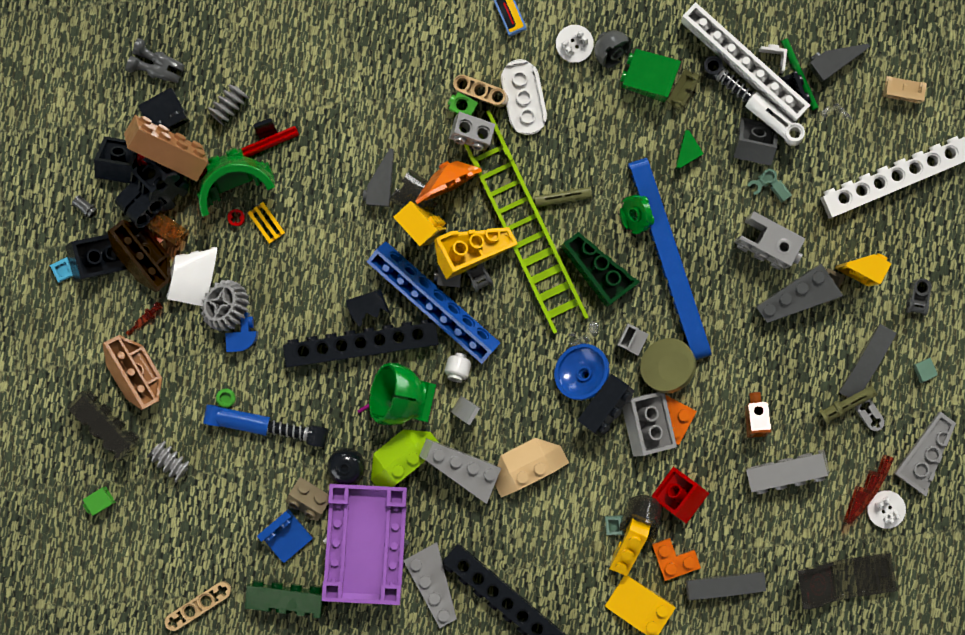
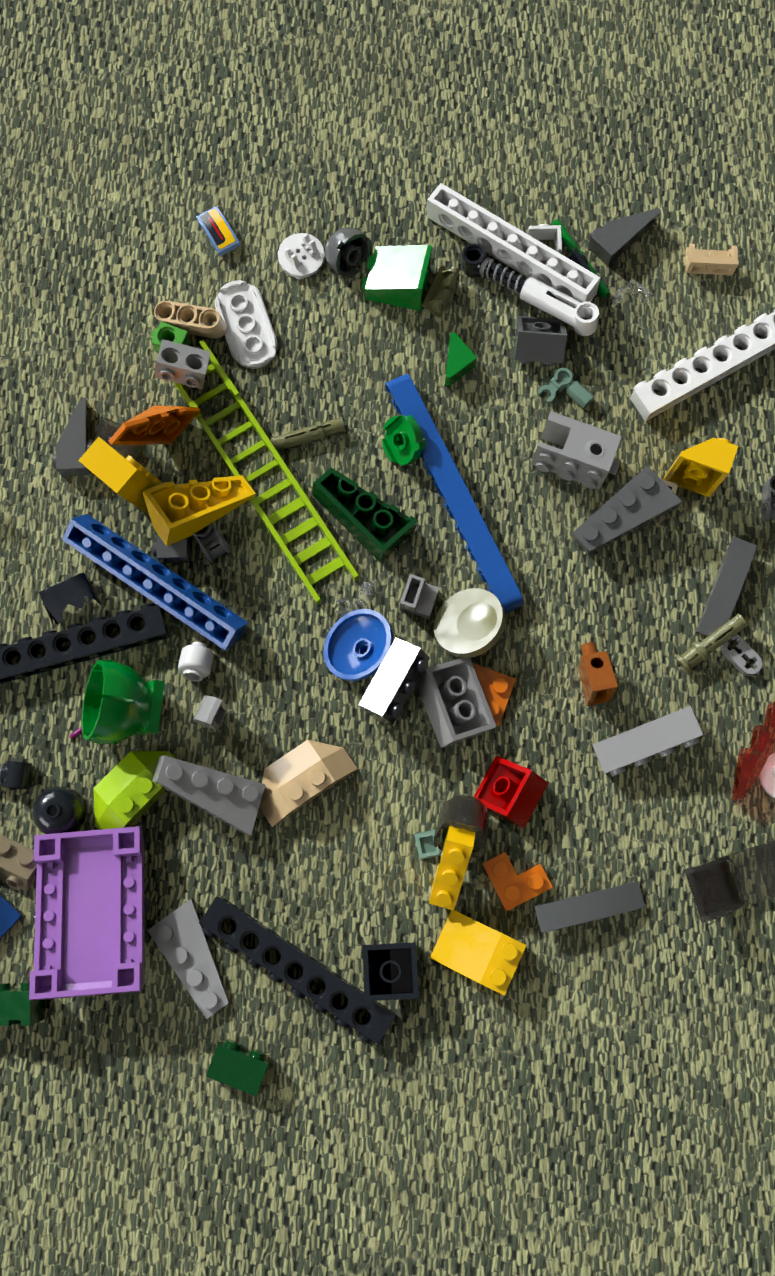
camera: 10 degrees left, 10 degrees down
(576, 613) = (390, 971): none -> black slope

